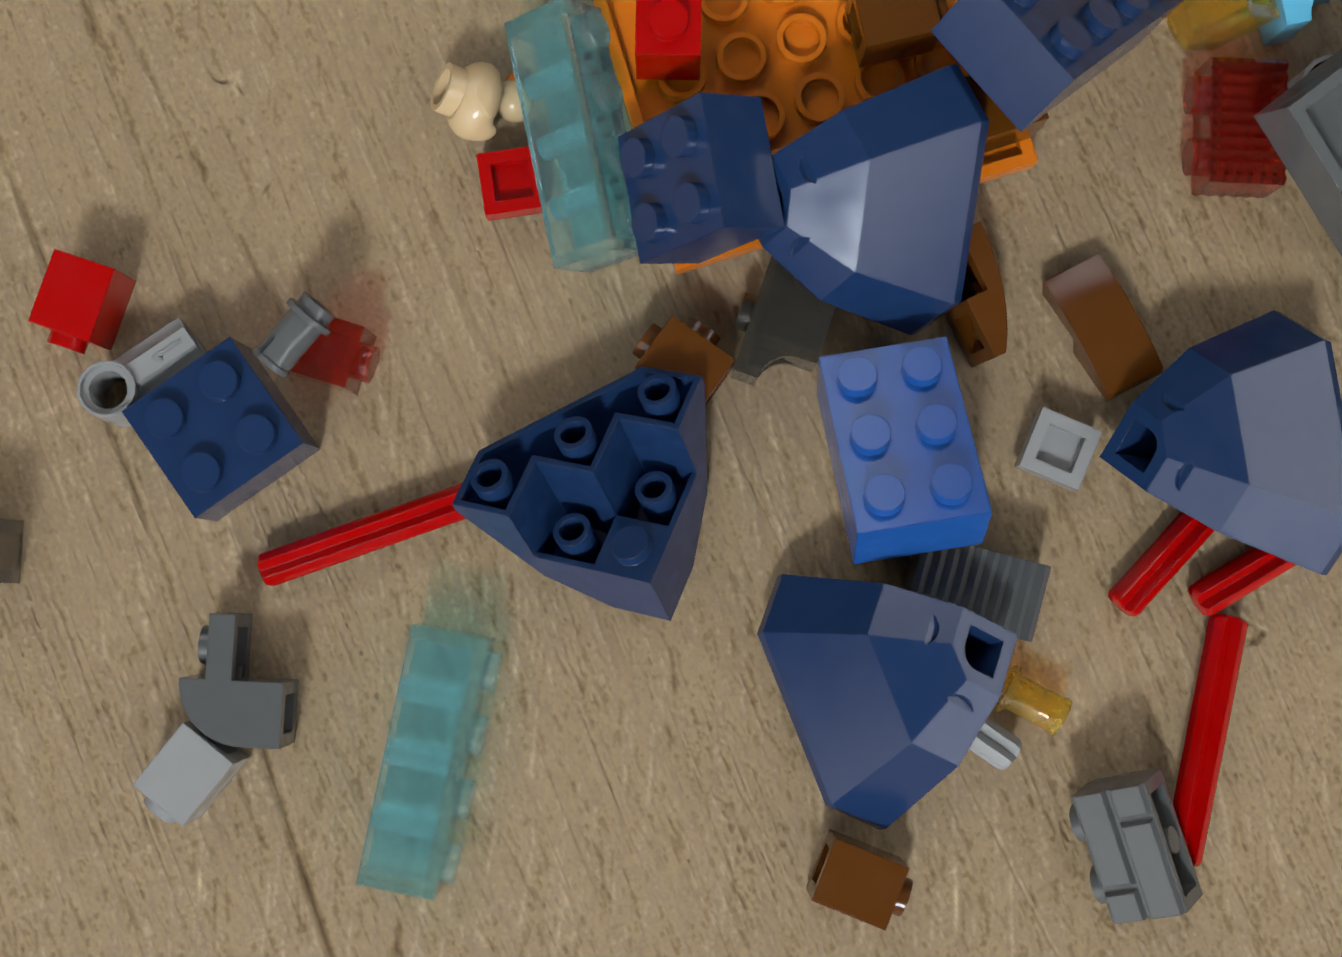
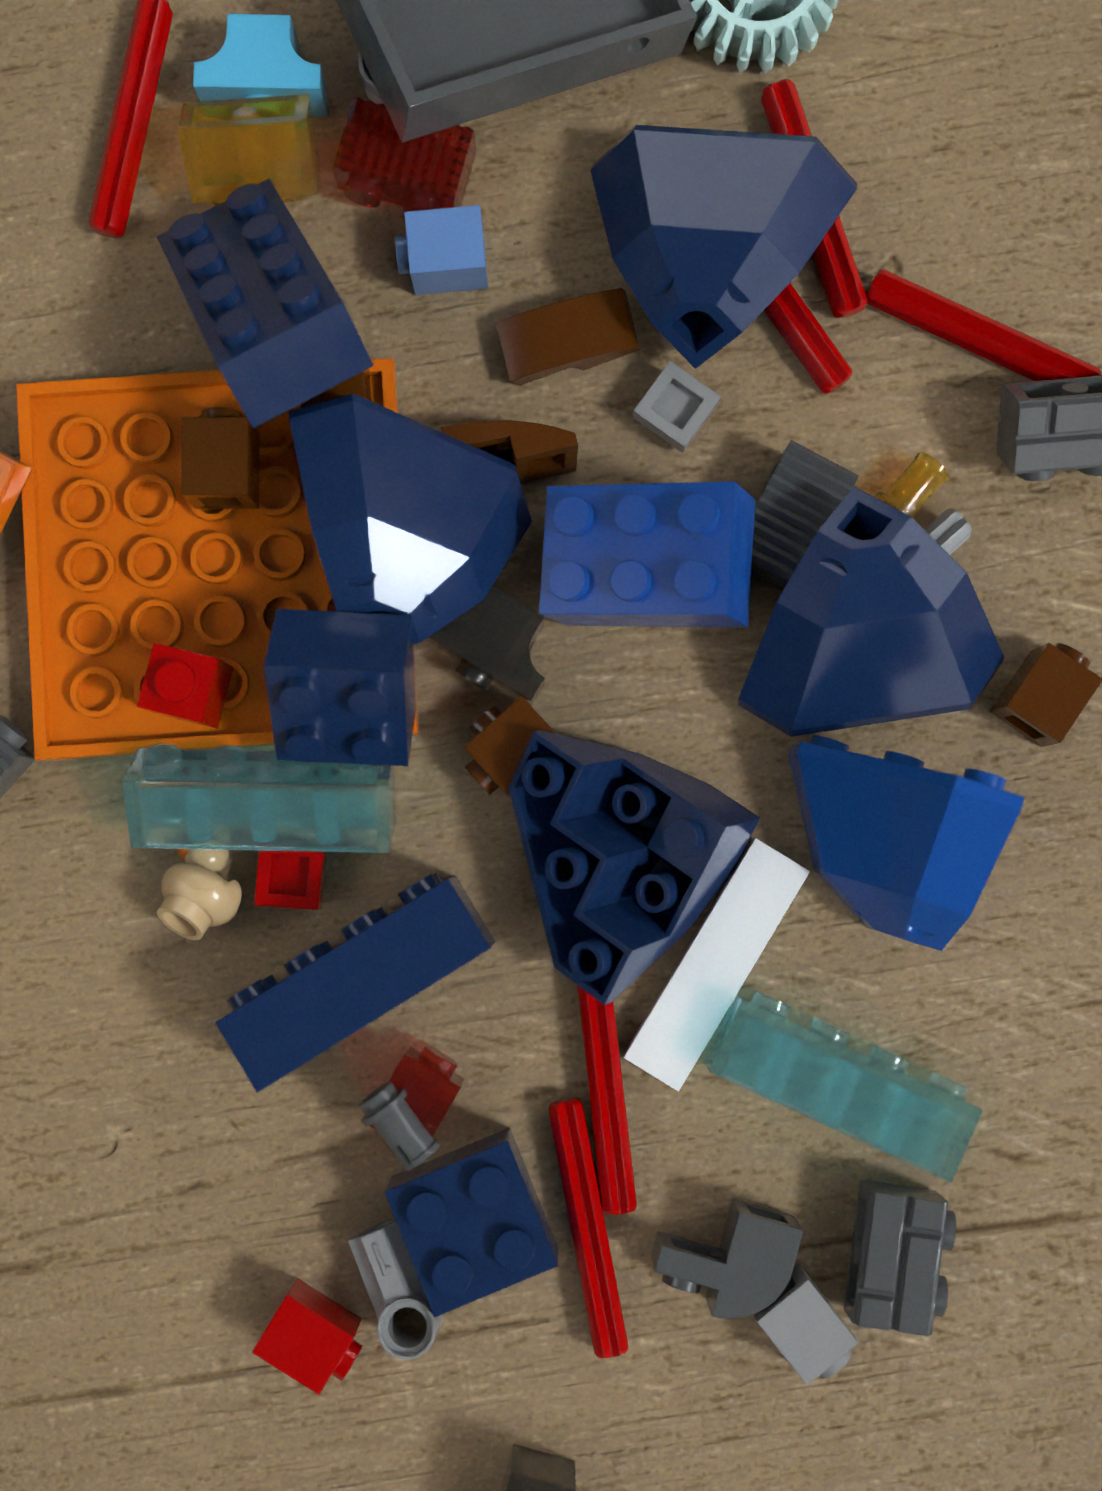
camera: 75 degrees left, 0 degrees up
(240, 544) = (588, 1228): none -> red axle
(274, 850) = (898, 1258): none -> dark grey brick
(419, 259) = (348, 987): none -> dark blue brick
(519, 611) = (715, 964): none -> white tile
(680, 760) = (901, 838): none -> blue brick
(1157, 186) = (443, 250): none -> medium blue brick

